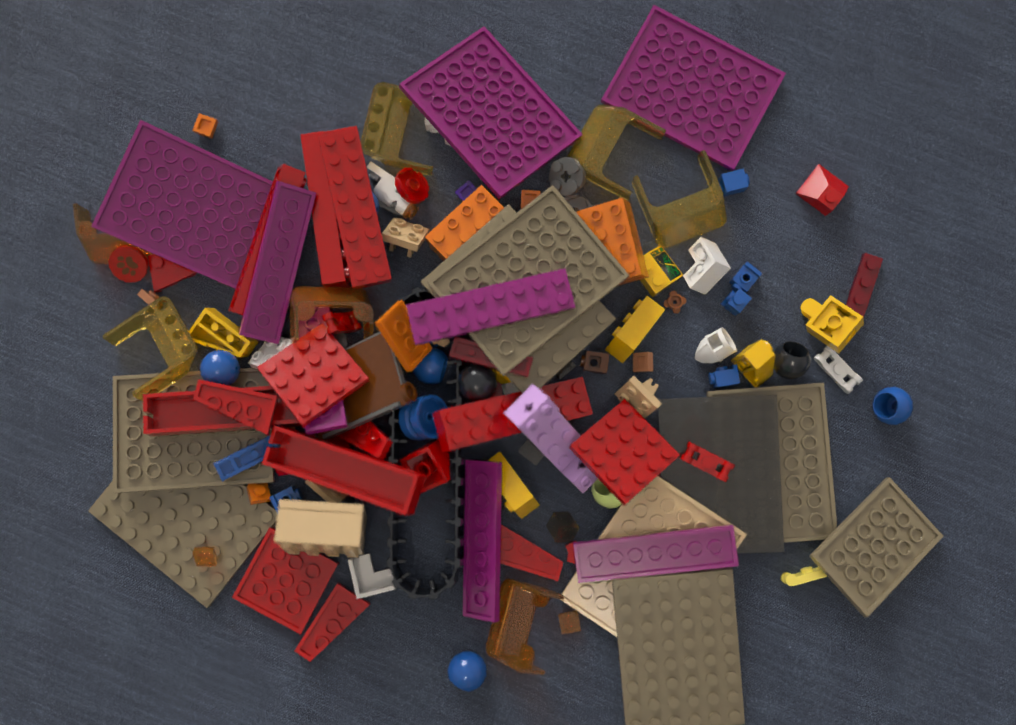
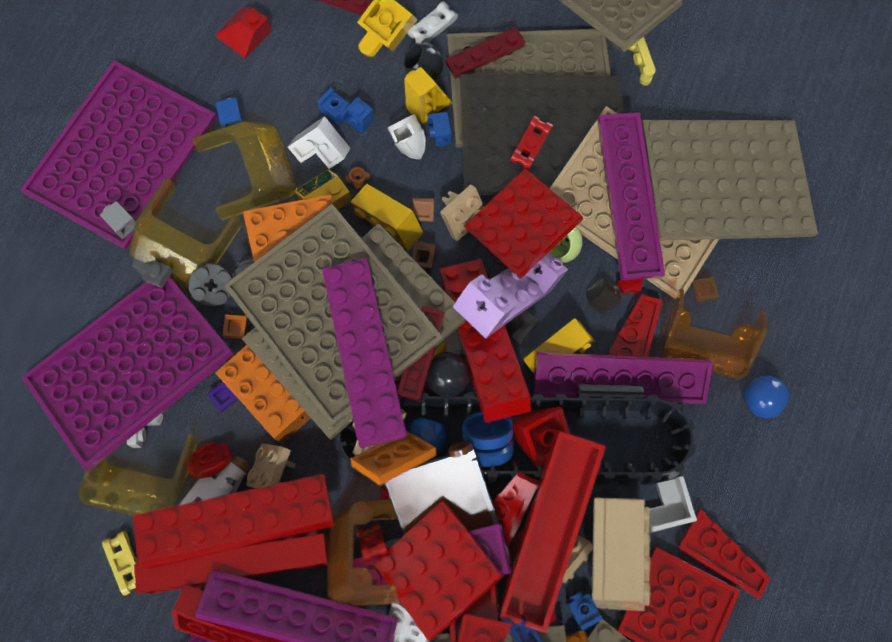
camera: 95 degrees left, 10 degrees down
(331, 120) = (122, 561): none -> light yellow plate
(468, 528) = (616, 391): none -> dark grey axle
(577, 127) = (155, 273): none -> dark grey plate
(624, 92) = (118, 219): none -> light grey brick
(804, 419) = (485, 52): none -> dark red plate

